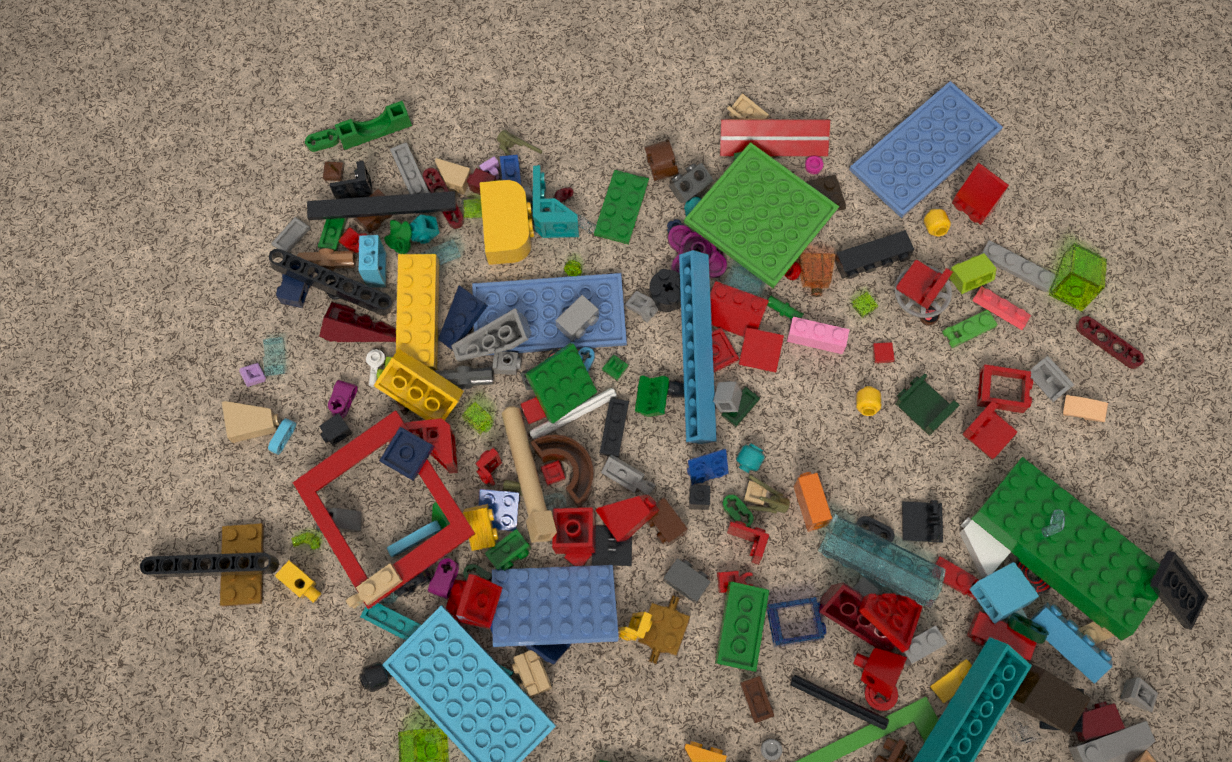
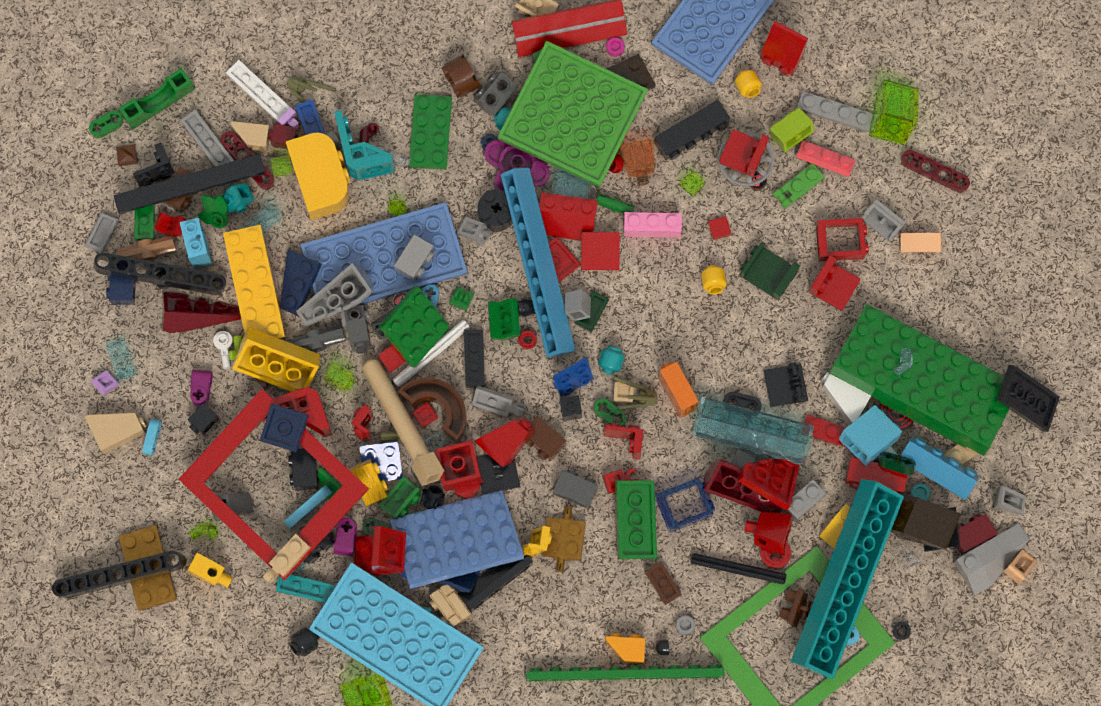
camera: 15 degrees left, 5 degrees up
(419, 502) = (304, 470): none -> black brick
(468, 136) = (257, 90): none -> white plate
(505, 380) = (358, 335): none -> dark grey brick
(540, 556) = (432, 497): none -> black gear
(582, 657) = (493, 581): none -> black panel
(671, 414) = (527, 333): none -> red plate
(1045, 662) = (921, 491): none -> teal tile

